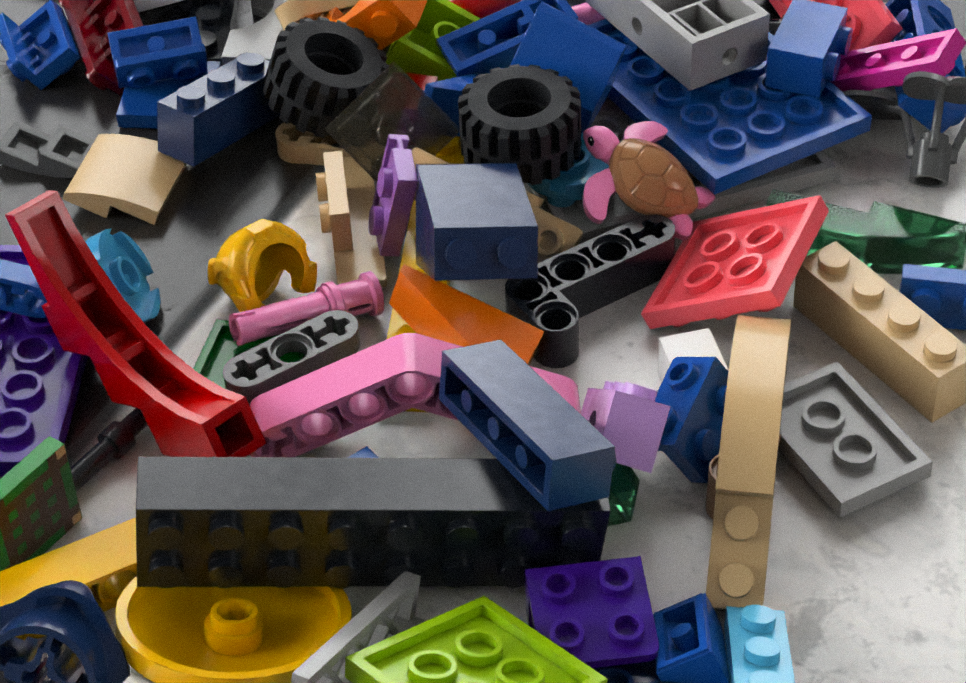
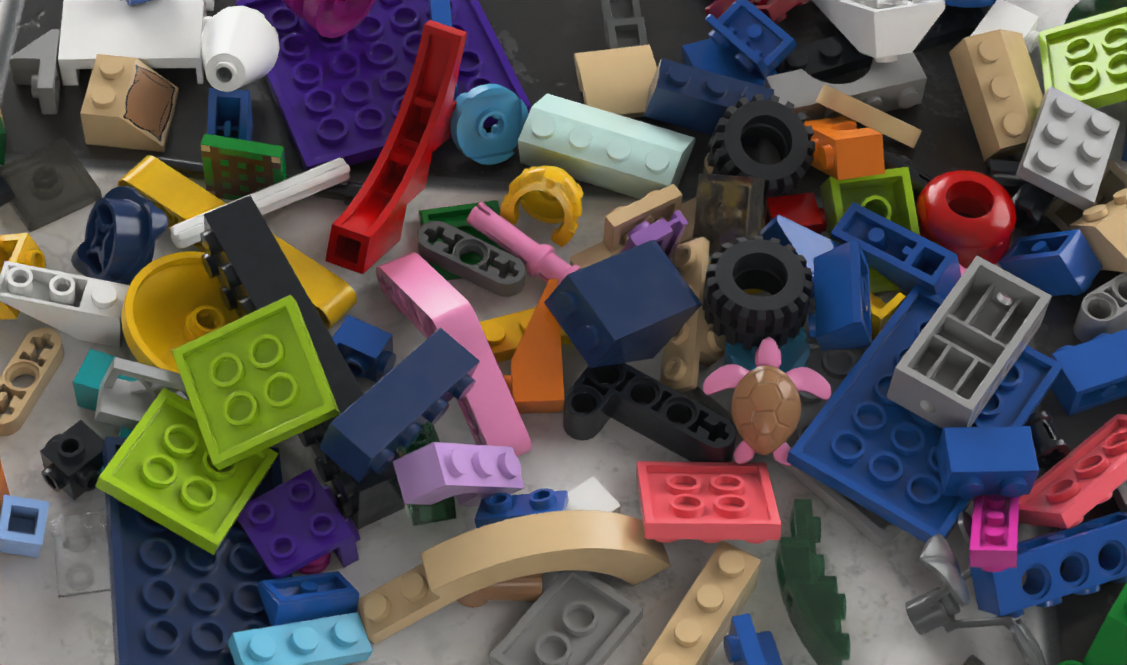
camera: 60 degrees right, 10 degrees up
(91, 509) = (272, 197): none -> white axle
(195, 217) = (603, 147): none -> light aqua slope
(413, 547) = (255, 382): none -> lime plate

